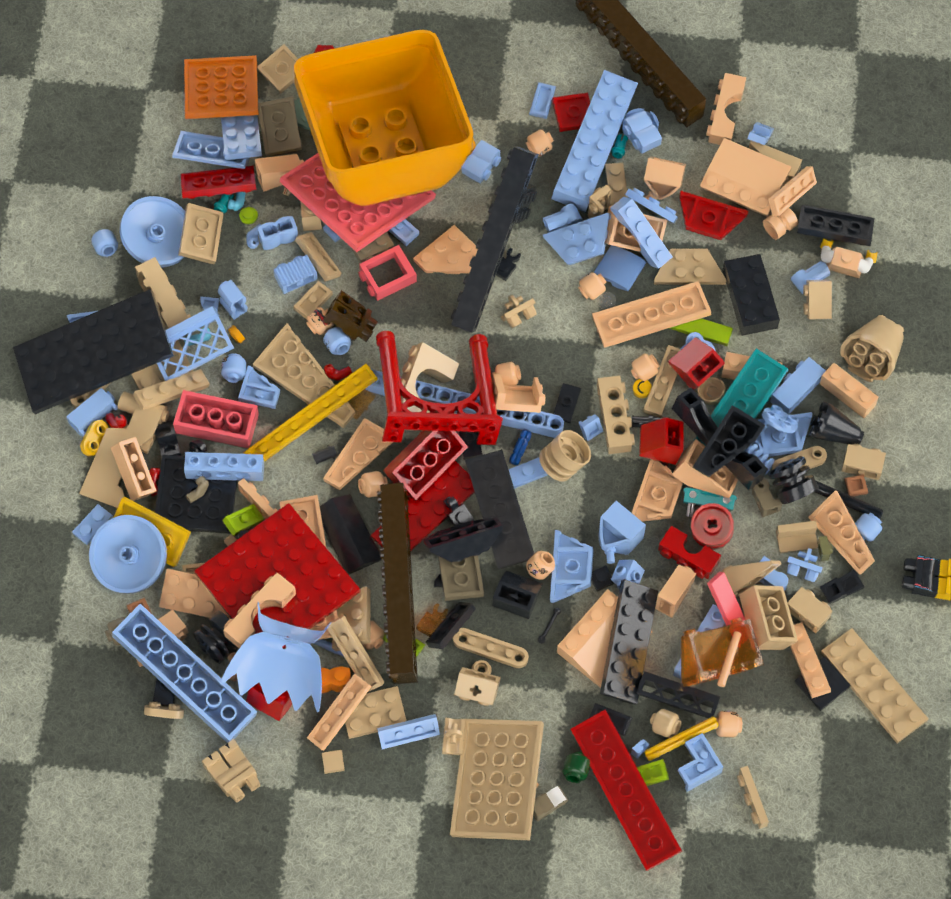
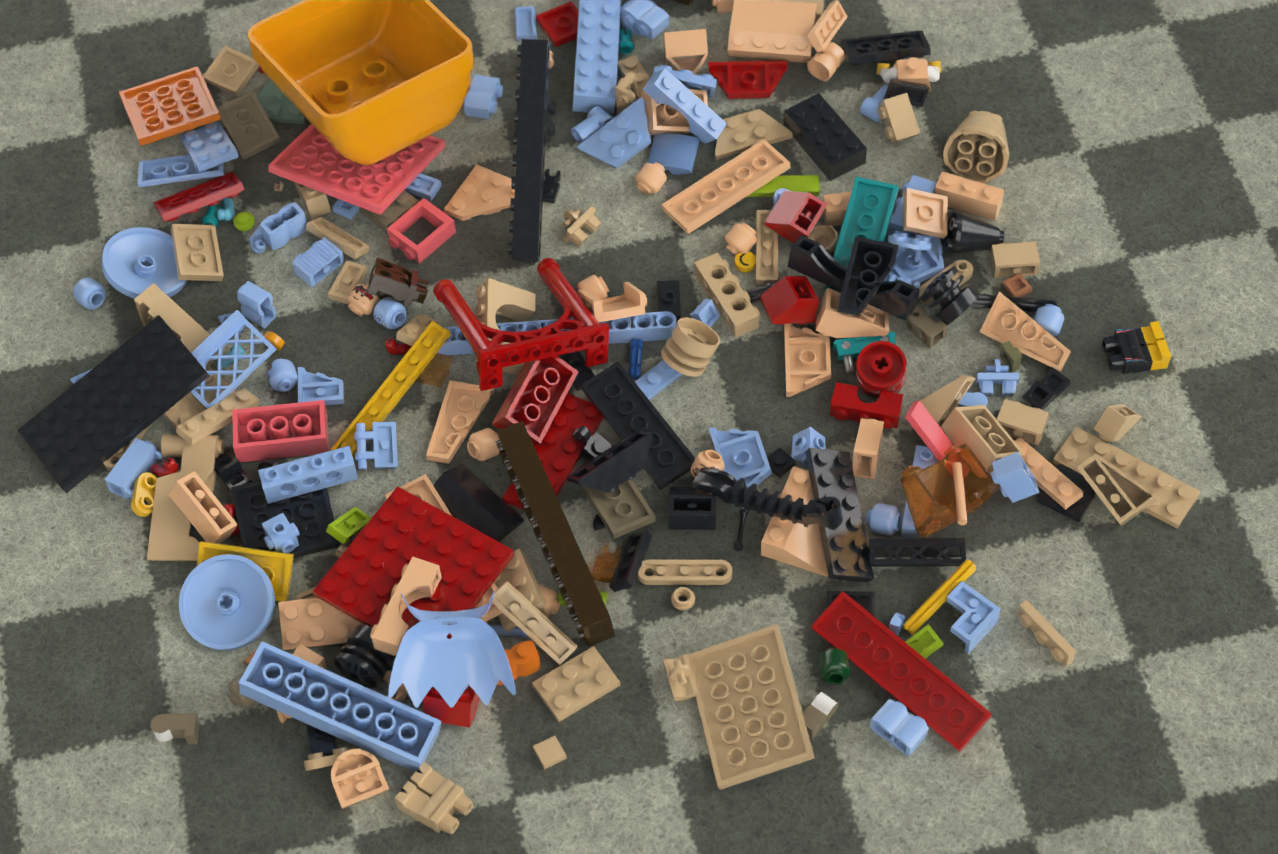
camera: 15 degrees left, 10 degrees down
(59, 643) = (176, 726): none -> dark tan leg
(91, 523) = (170, 588): light blue plate -> none
(180, 733) = (357, 777): none -> light nougat slope
(186, 512) = (280, 534): none -> light blue brick
(199, 491) = (289, 504): dark tan arm -> none
(248, 490) = (350, 498): light nougat plate -> none
(271, 169) = (253, 167): light nougat slope -> none
(293, 457) = (384, 445): none -> light blue plate
(297, 371) = (358, 358): tan wing -> none
(325, 454) = (419, 431): black pin -> none
(339, 712) = (537, 693): light nougat plate -> none
(352, 363) = (414, 329): none -> tan plate
(408, 731) = (625, 690): light blue plate -> none
(487, 684) = (674, 609): tan brick -> none
(570, 612) = (819, 511): none -> black piece
(607, 834) = (899, 726): none -> light blue brick
(619, 531) = (782, 404): light blue piece -> none
(664, 657) = (884, 519): none -> light blue head
(665, 723) = (914, 587): tan head -> none
(729, 724) = (987, 566): light nougat head -> none
(779, 660) = (1014, 477): none -> light blue brick
(797, 536) = (975, 353): tan panel -> none
(803, 397) = (925, 213): none -> light nougat plate
(840, 278) = (916, 92): none -> black plate
(857, 696) = (1116, 489): none -> tan wedge
(886, 635) = (1116, 422): none -> tan slope

